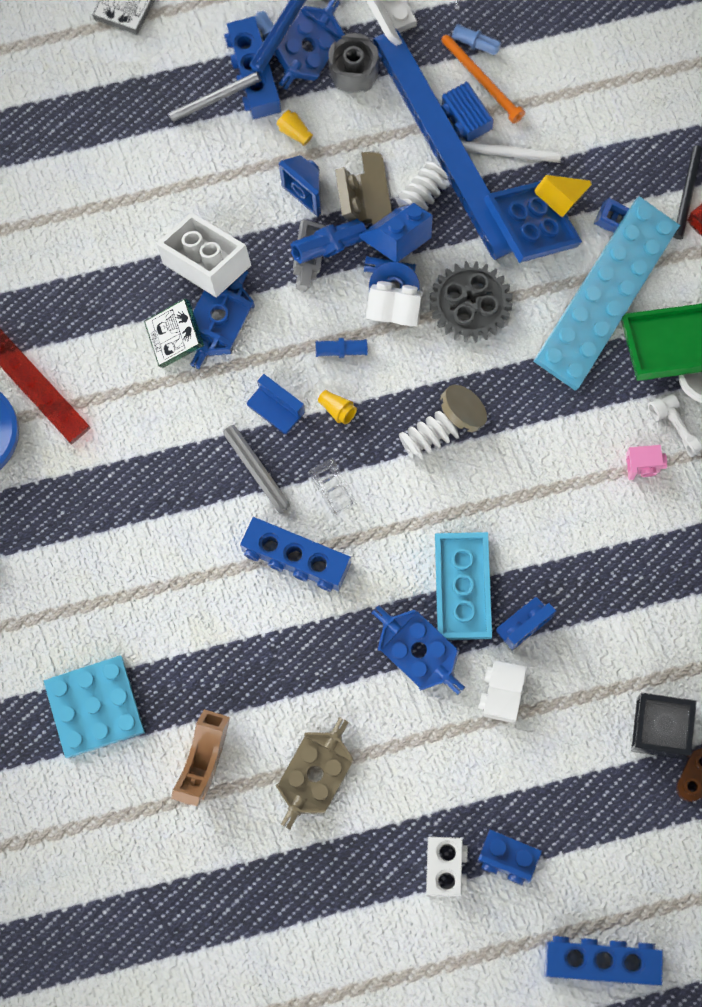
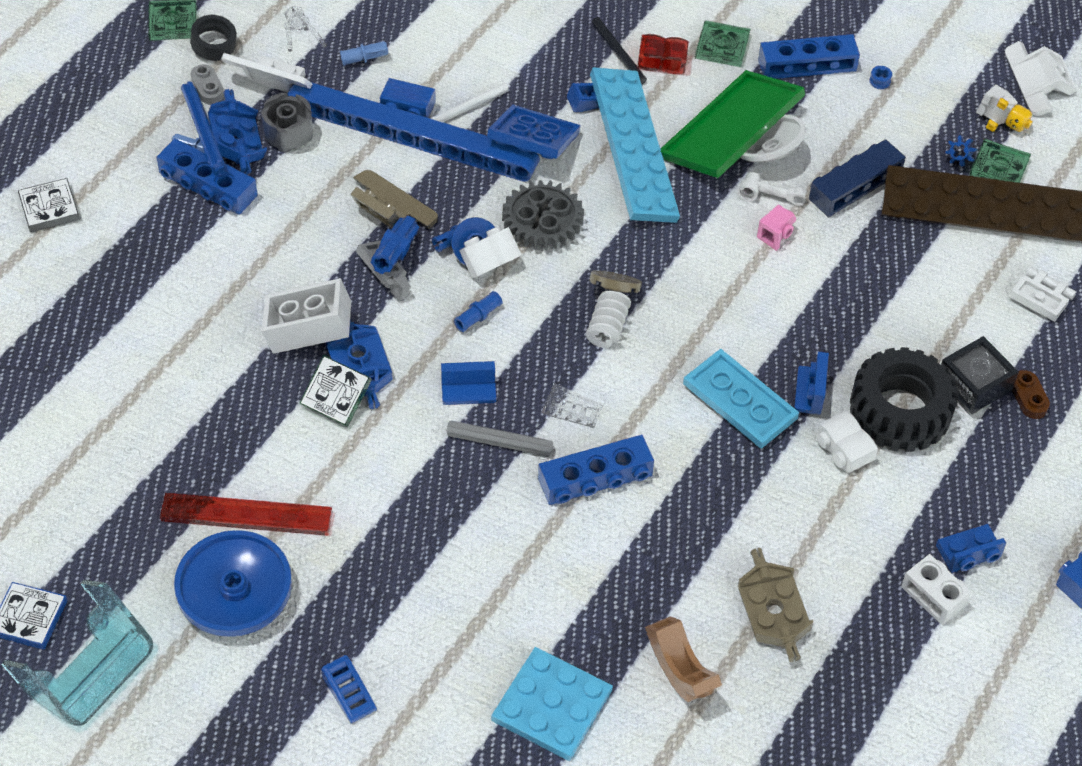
camera: 50 degrees left, 20 degrees down
(215, 96) = (197, 212): flat silver bar -> none
(293, 127) = (281, 194): yellow cone -> none
(302, 181) = (335, 223): blue slope -> none
(338, 407) = (518, 351): yellow cone -> none
(397, 643) = (777, 453): blue plate -> none
(400, 232) = (444, 199): blue slope -> none
(423, 186) = (429, 167): white piece -> none
(515, 113) = (443, 79): orange bar -> none
(561, 192) = (535, 100): yellow slope -> none
(597, 664) = (907, 372): none -> black tyre

